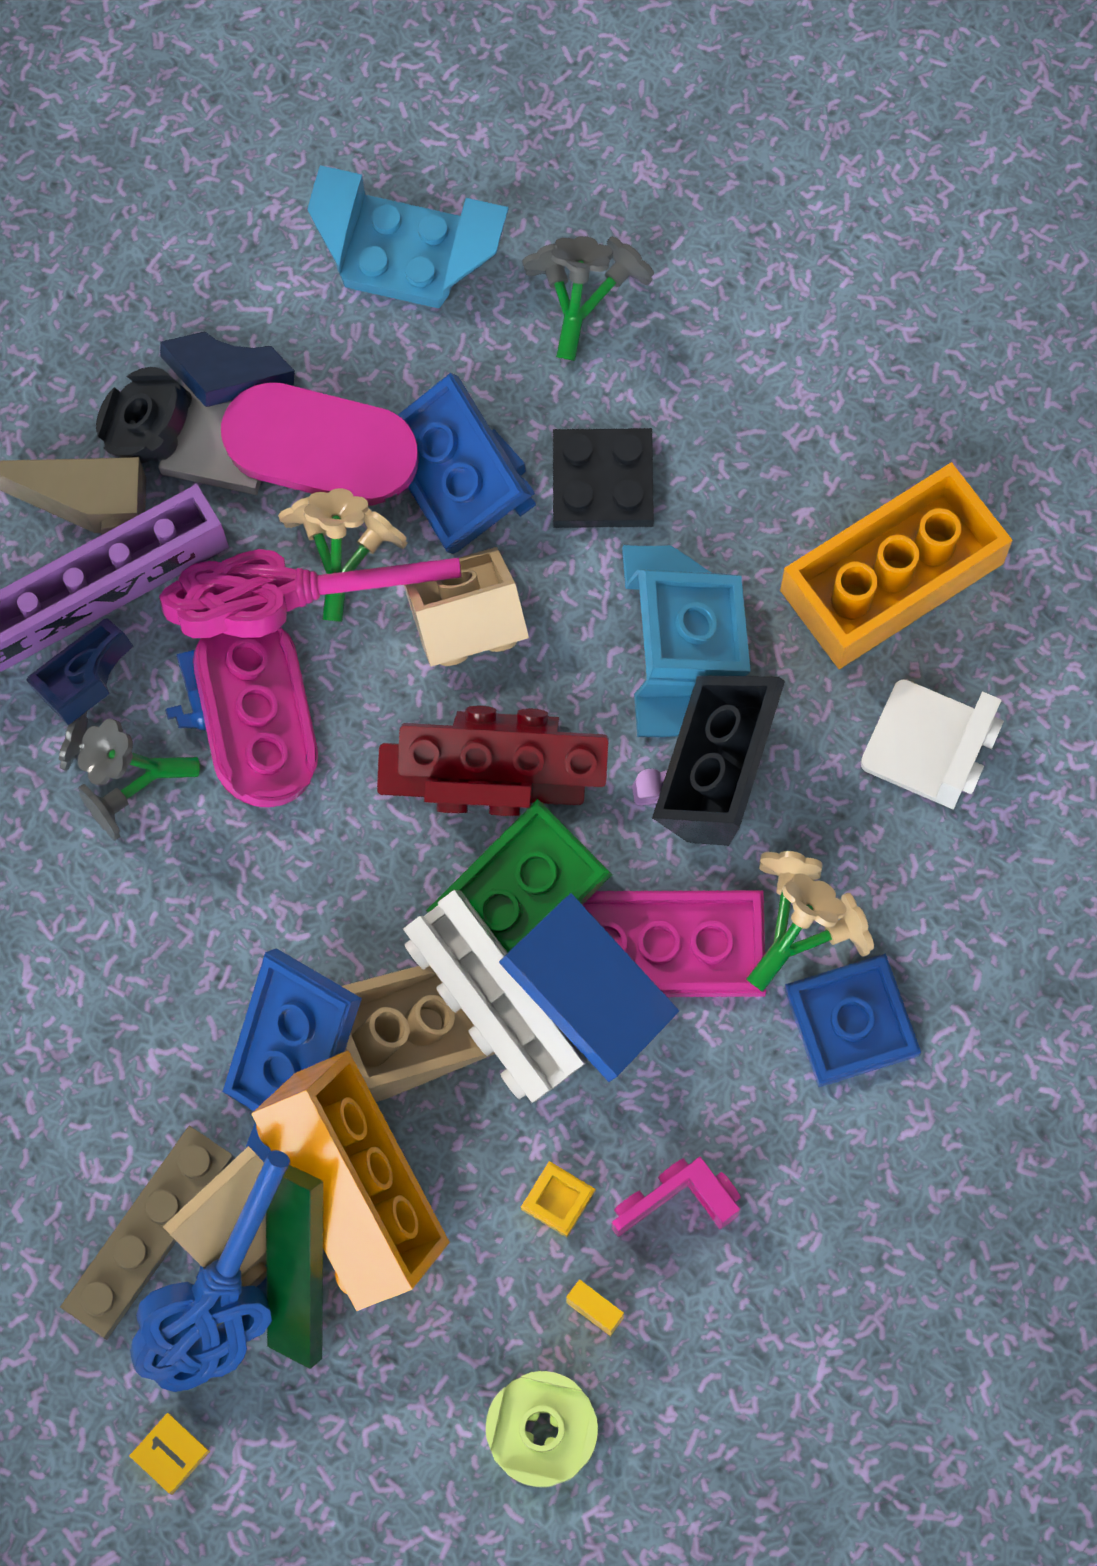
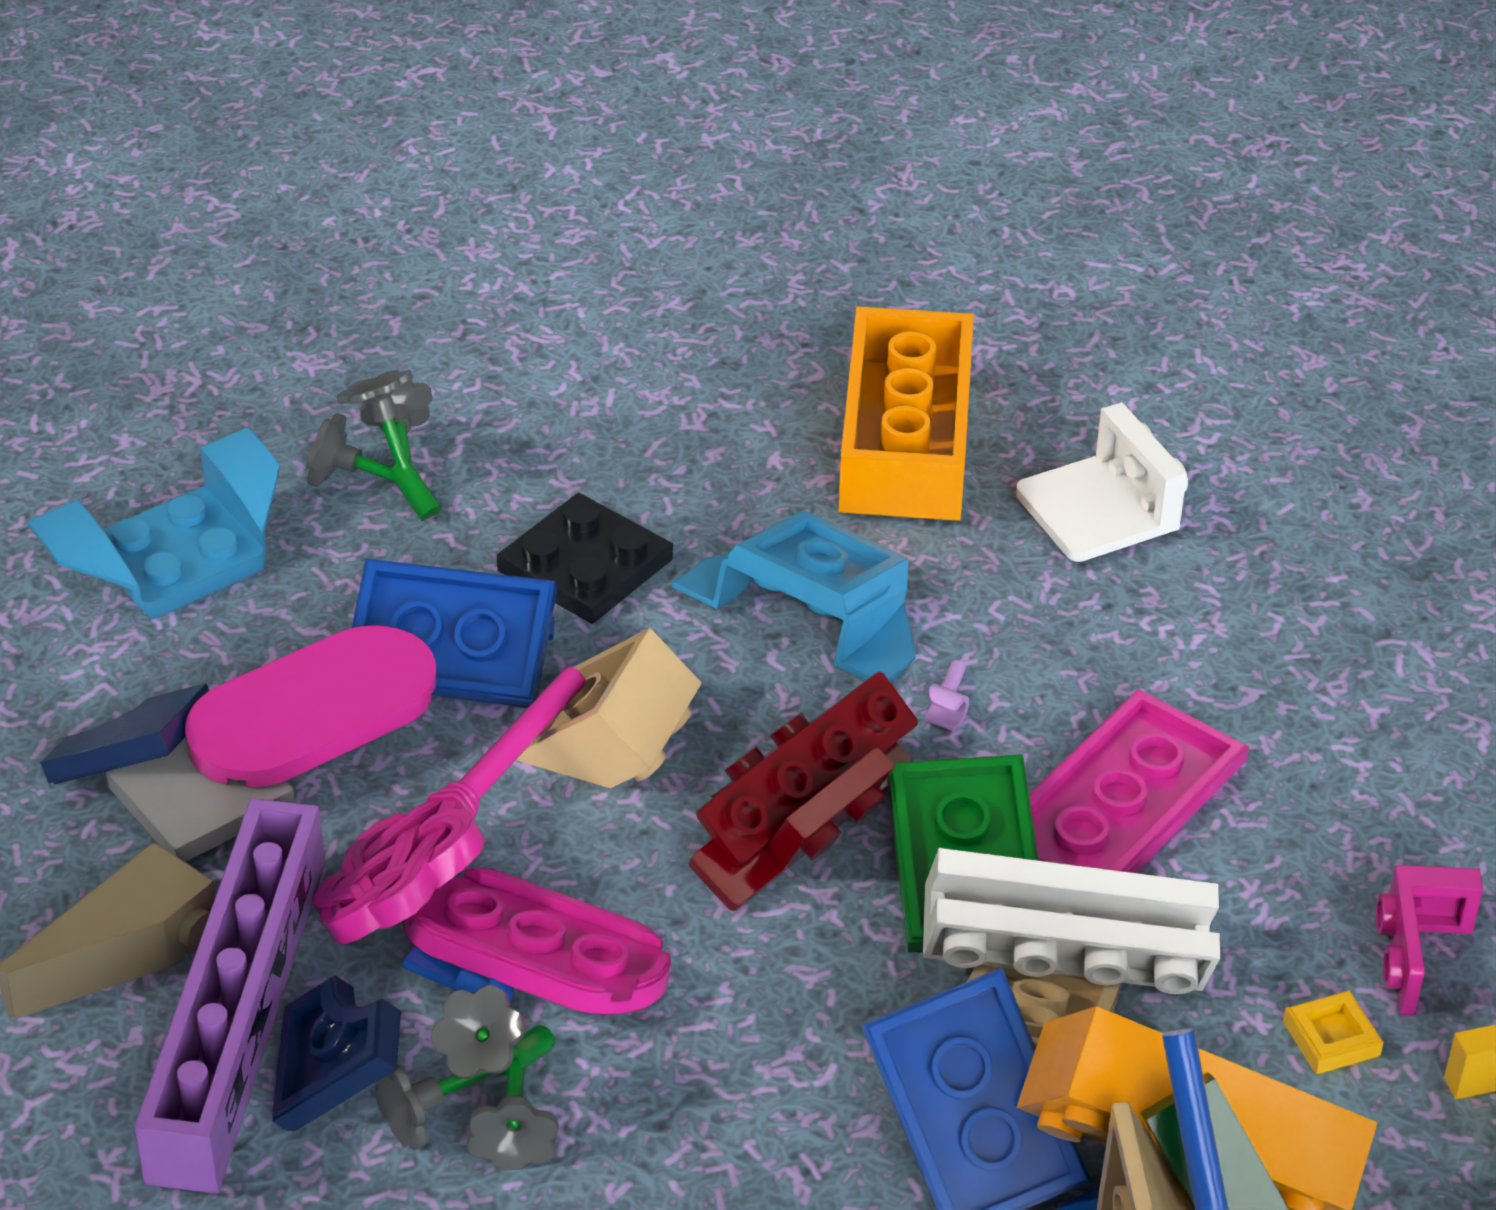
camera: 55 degrees left, 30 degrees down
(165, 411) = (78, 801): black plate -> none
(330, 515) = (445, 718): tan plant -> none
(589, 987) = (1136, 836): blue tile -> none
(717, 757) = (991, 606): black slope -> none
(810, 902) = (1231, 634): tan plant -> none
(852, 1020) = (1331, 711): blue tile -> none

